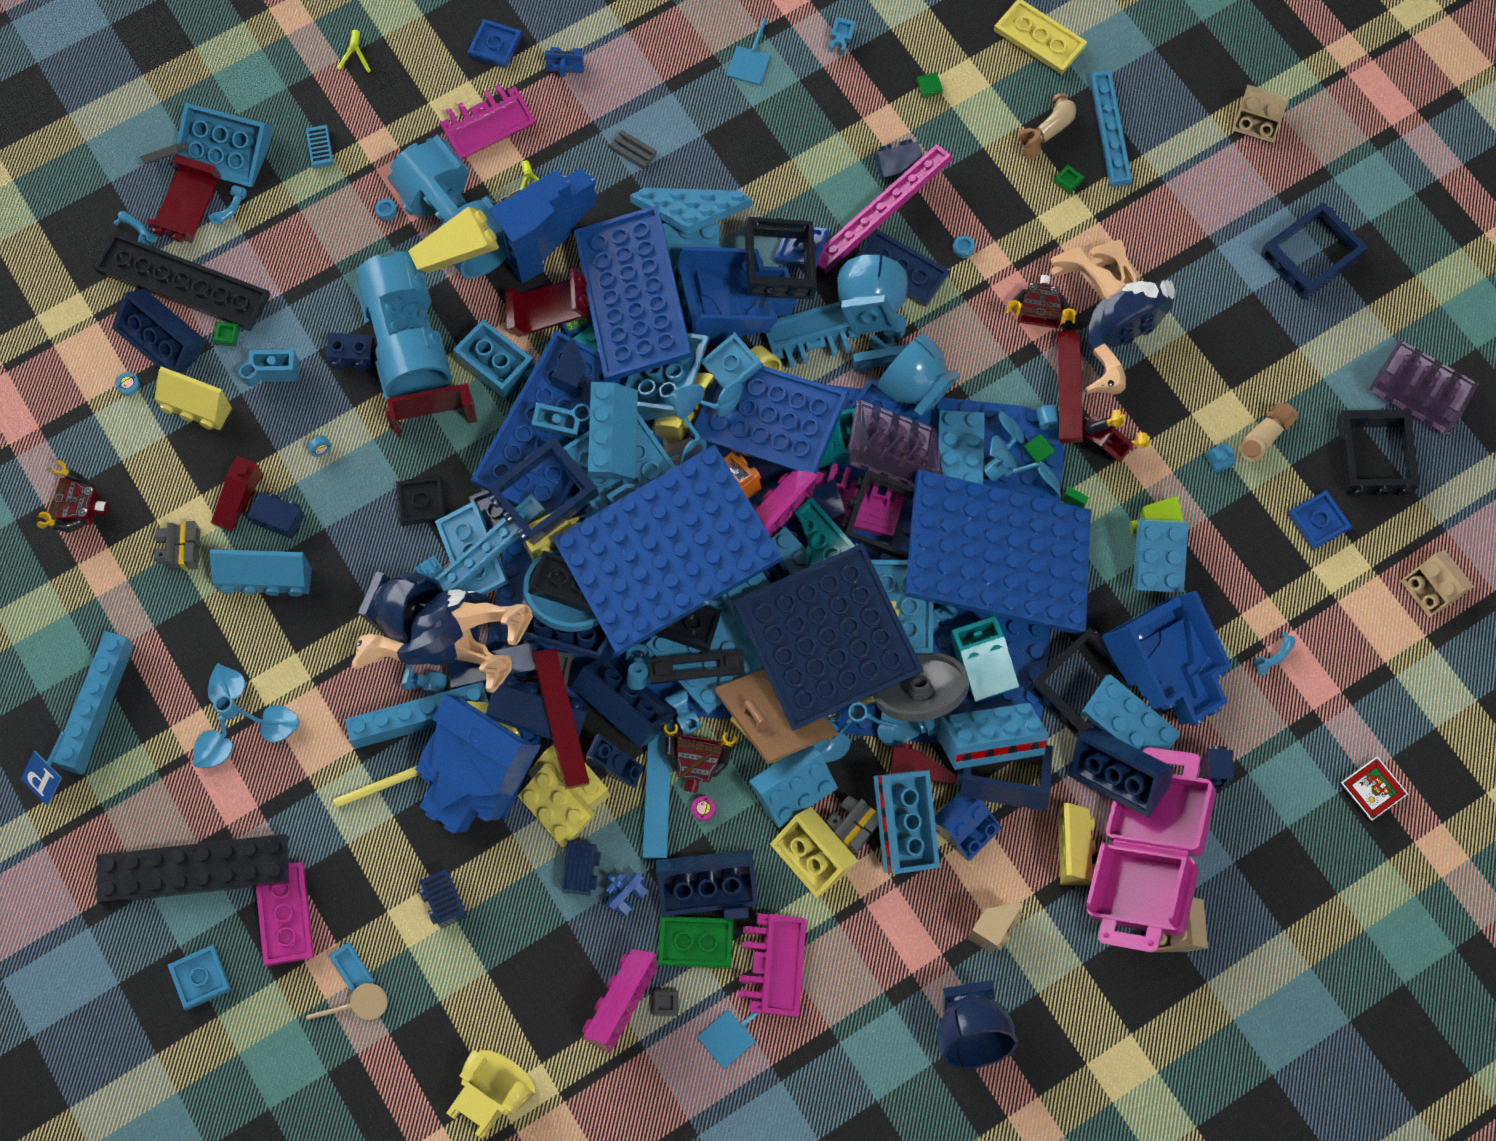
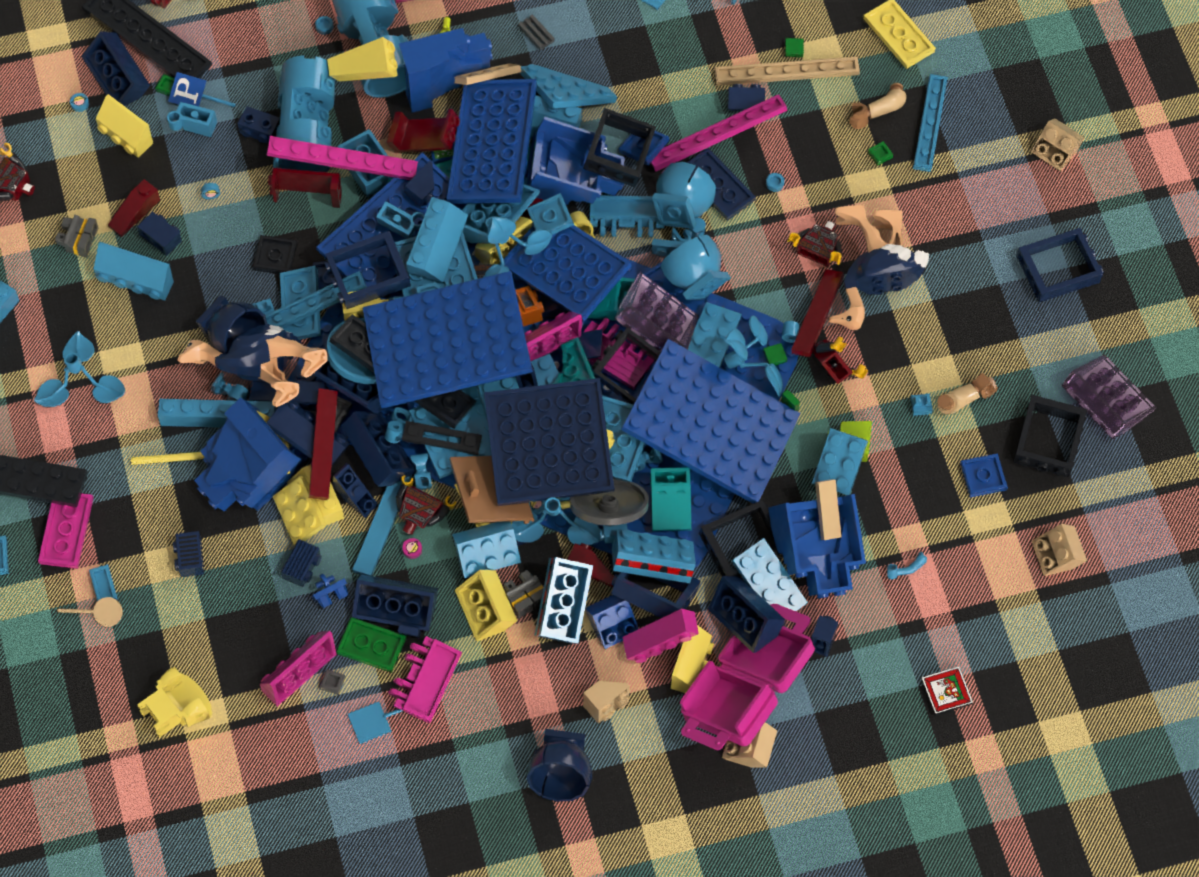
camera: 15 degrees right, 5 degrees down
(255, 333) = (190, 91): none -> blue piece
(466, 365) = (342, 158): none -> dark pink plate
(597, 214) = (487, 74): none -> tan tile
(930, 114) = (786, 71): none -> tan tile
(1035, 829) = (660, 635): none -> dark pink brick
(1170, 617) = (828, 509): none -> tan tile

